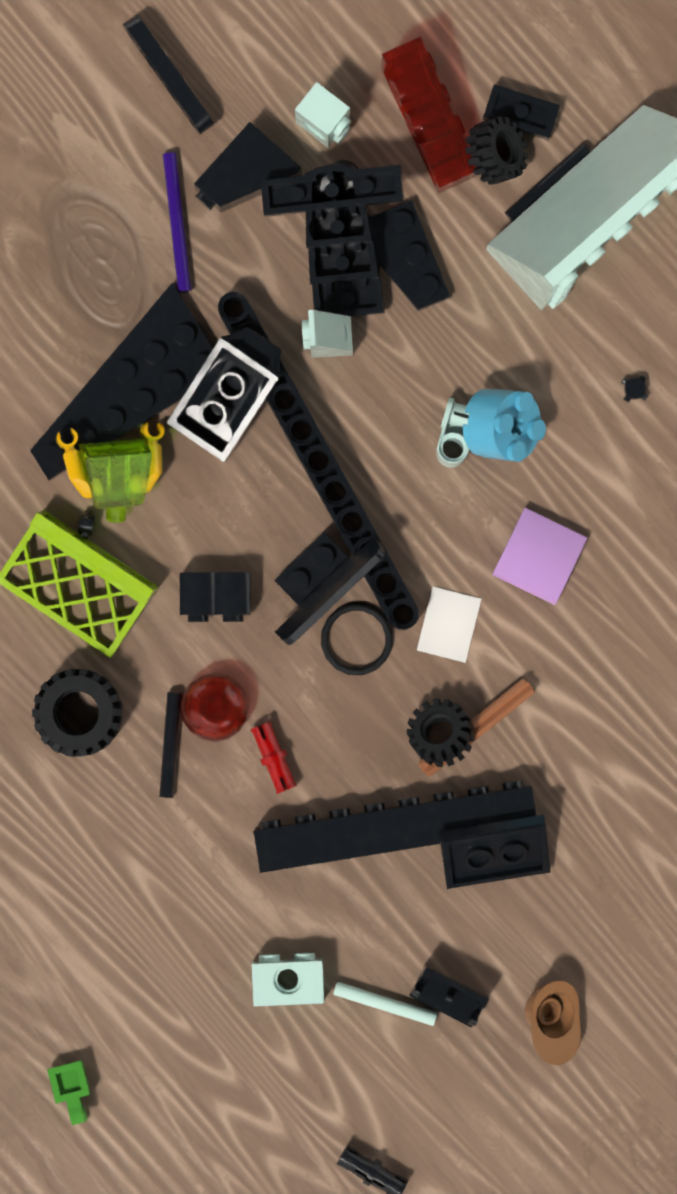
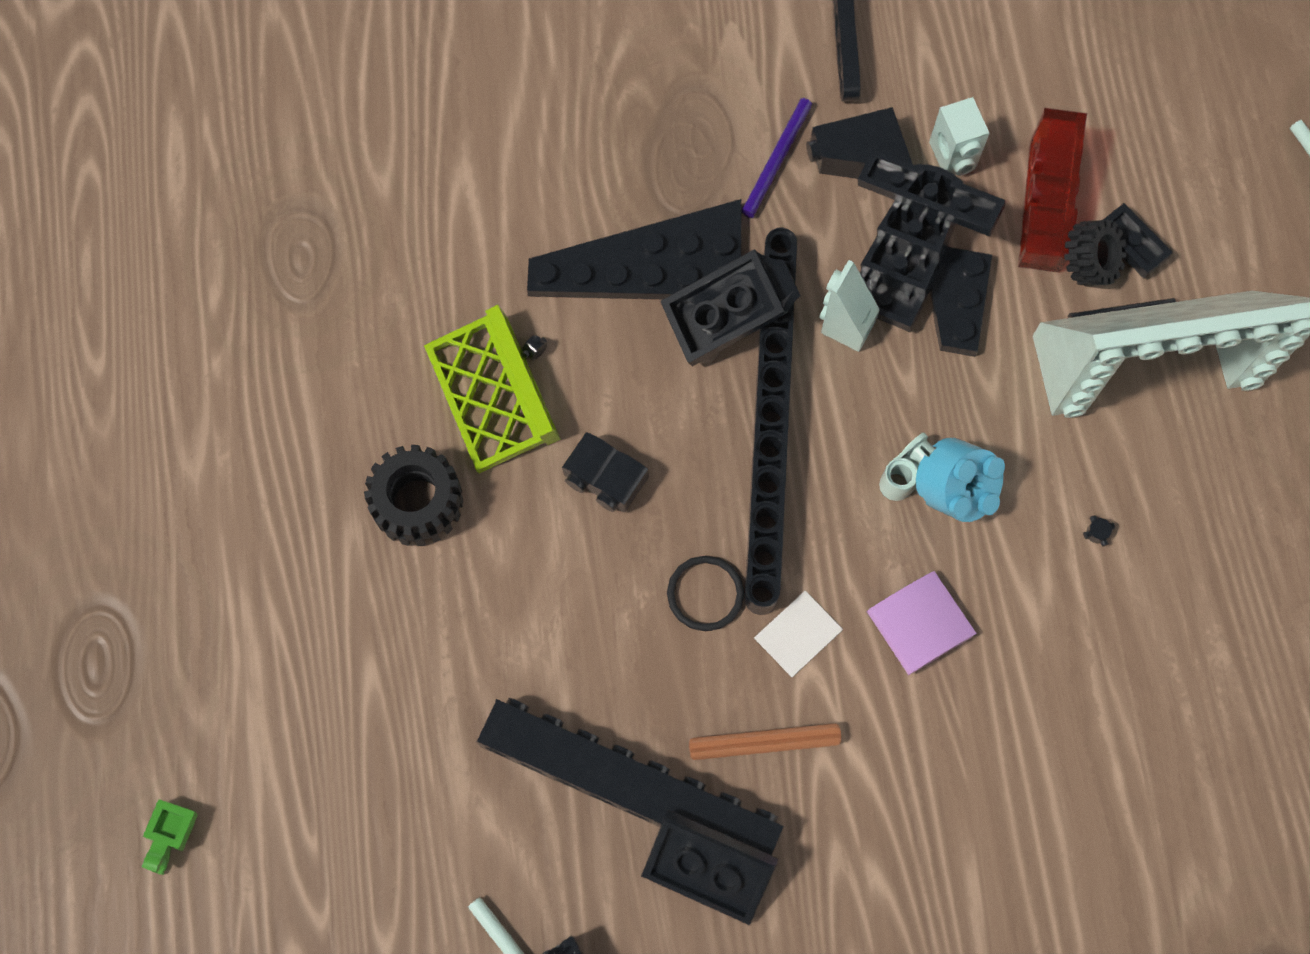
camera: 35 degrees right, 15 degrees down
(115, 471) = (587, 313): clear neon green torso -> none
(170, 745) = (476, 579): black bar -> none
(214, 707) = (538, 571): clear red cylinder -> none
(268, 990) = (411, 856): light aqua brick -> none
(273, 757) = (561, 649): red pin -> none
(321, 580) = (707, 513): black plate -> none
(430, 717) = (729, 739): black tyre -> none

